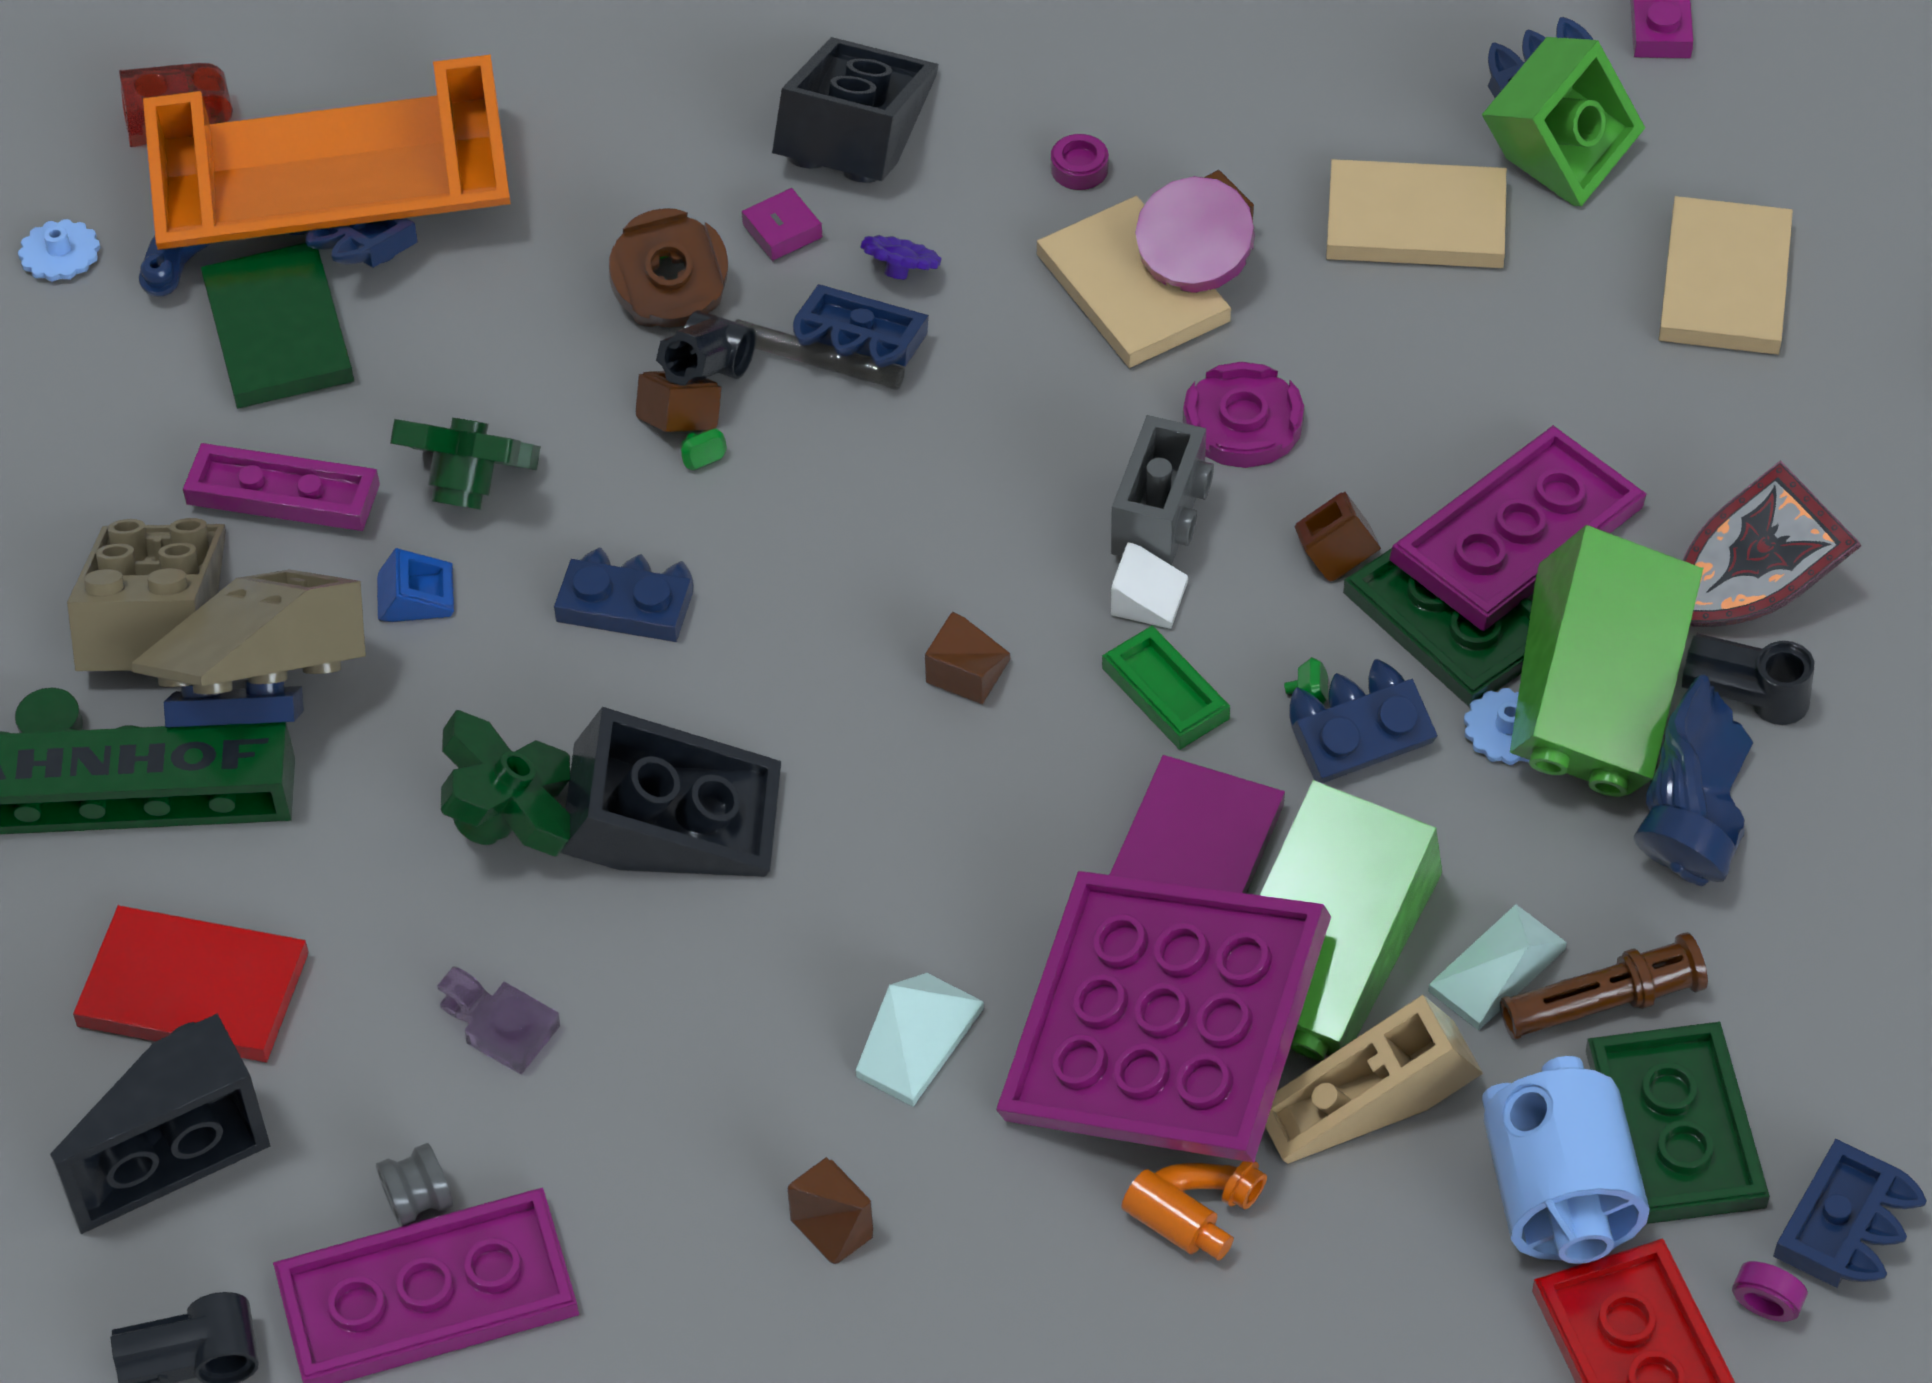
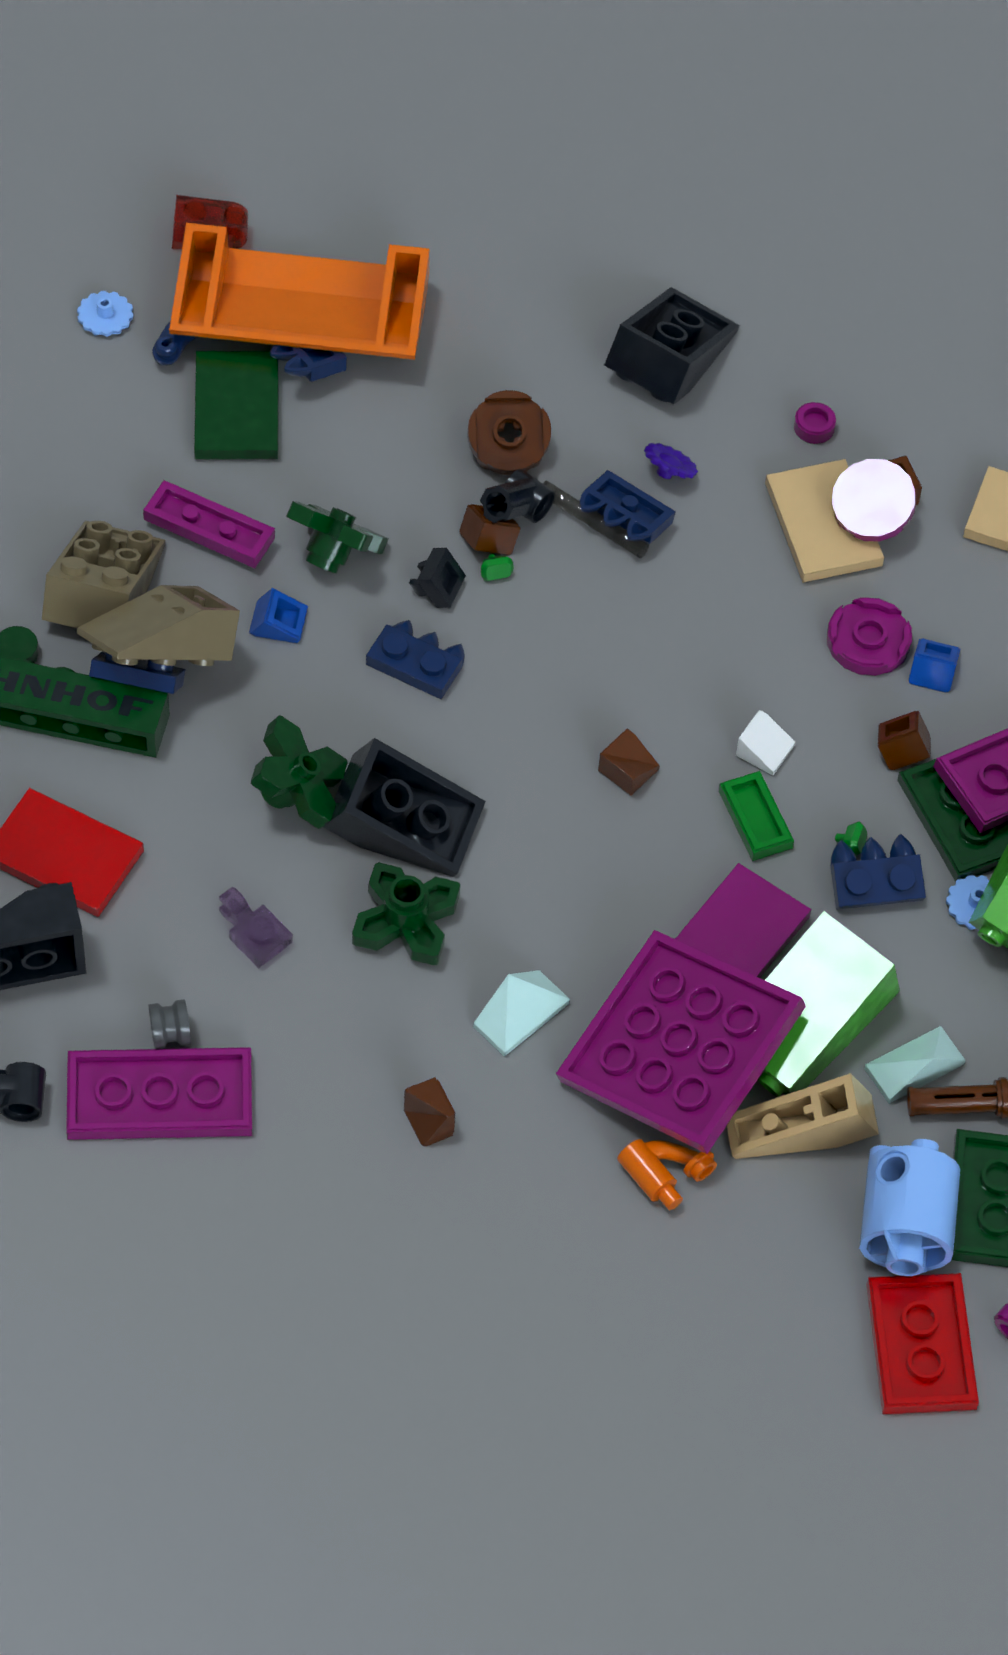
camera: 10 degrees right, 5 degrees up
(626, 480) = (439, 578): none -> black tile
(714, 936) = (406, 911): none -> dark green plant
(782, 224) = (597, 418): magenta tile -> none
(1161, 489) = (793, 678): dark grey brick -> none
(1344, 430) = (934, 665): none -> blue slope

